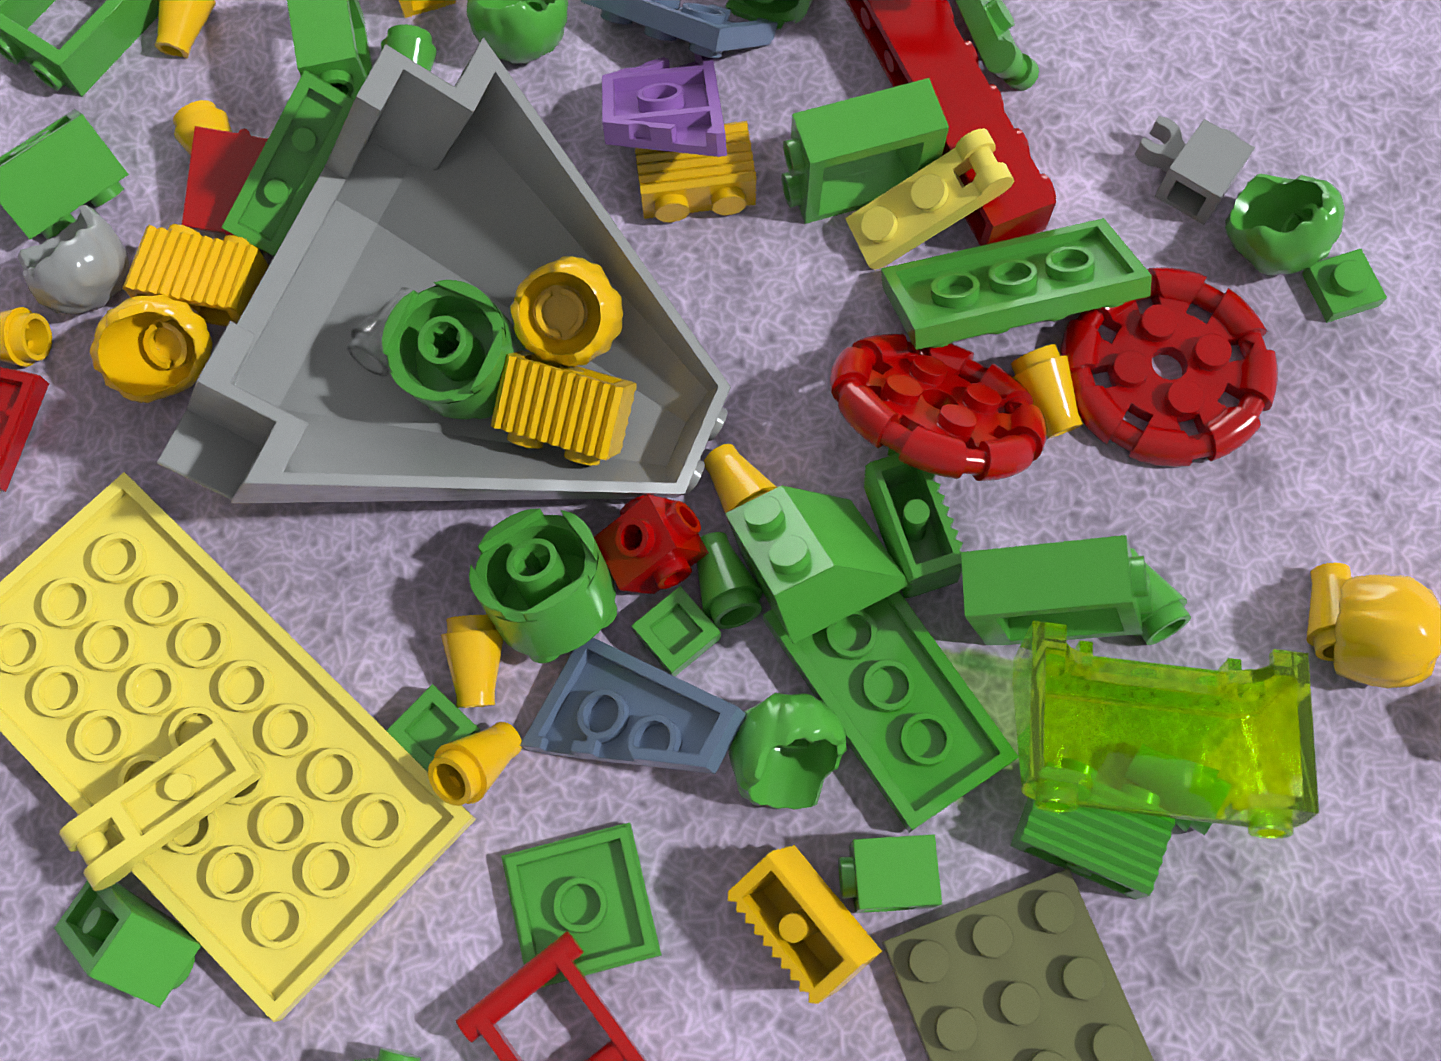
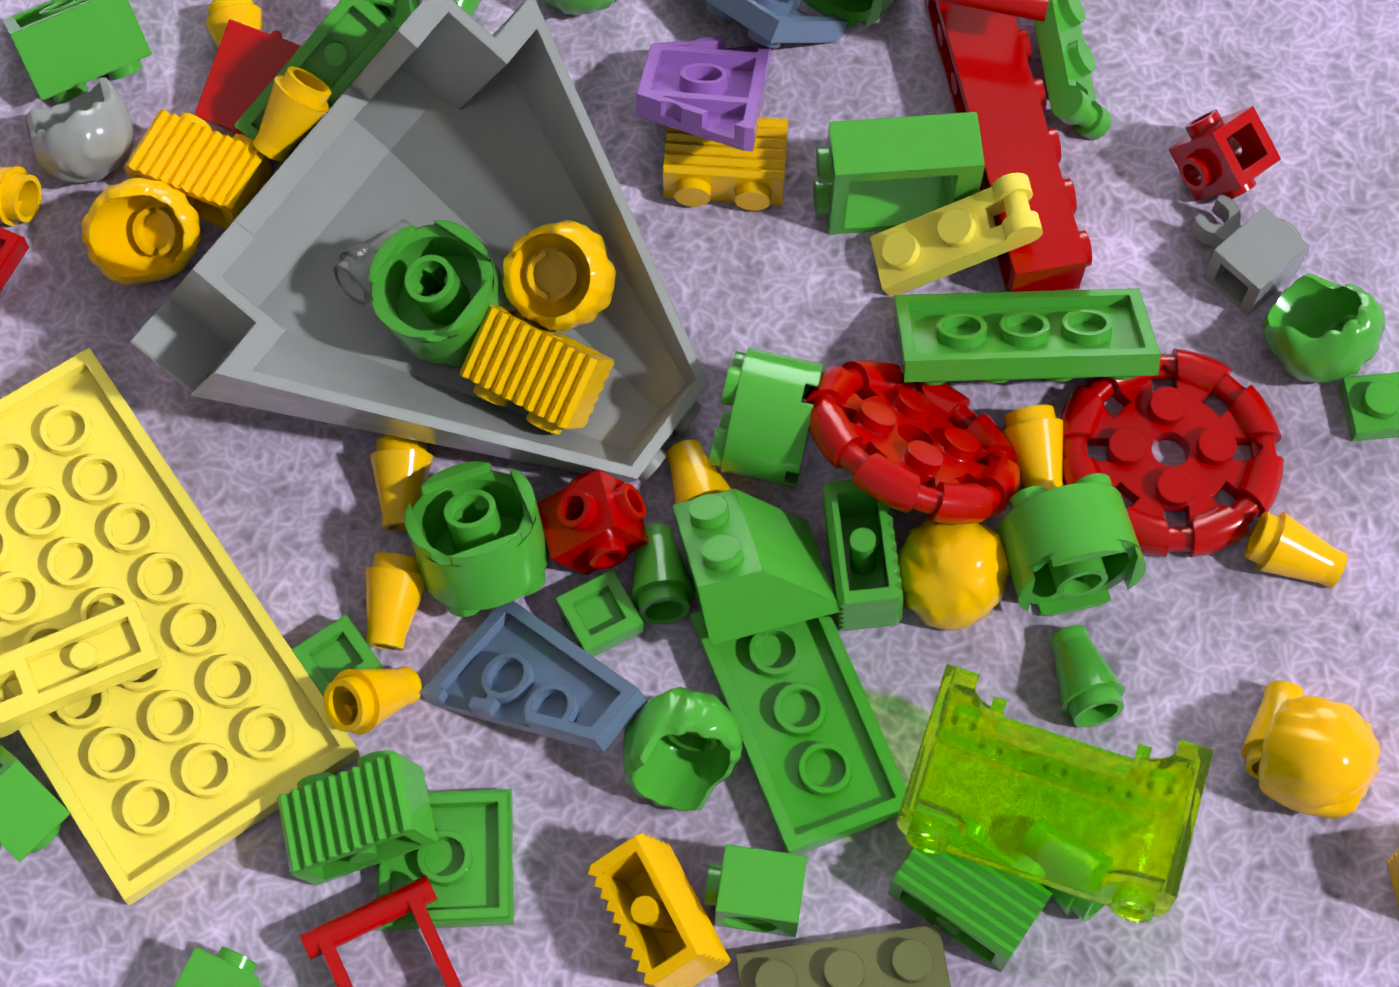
camera: 10 degrees right, 5 degrees down
(273, 203) = (291, 112): none -> yellow cone
(454, 534) = (399, 471): none -> yellow cone
(485, 889) = (356, 817): none -> bright green brick
(797, 410) = (768, 418): none -> bright green brick
(1001, 512) = (952, 573): none -> yellow hair
(1076, 583) = (1006, 637): bright green window -> none
(1107, 473) = (1070, 545): none -> bright green brick
(1144, 86) = (1224, 153): none -> red brick
(1304, 436) = (1291, 550): none -> yellow cone

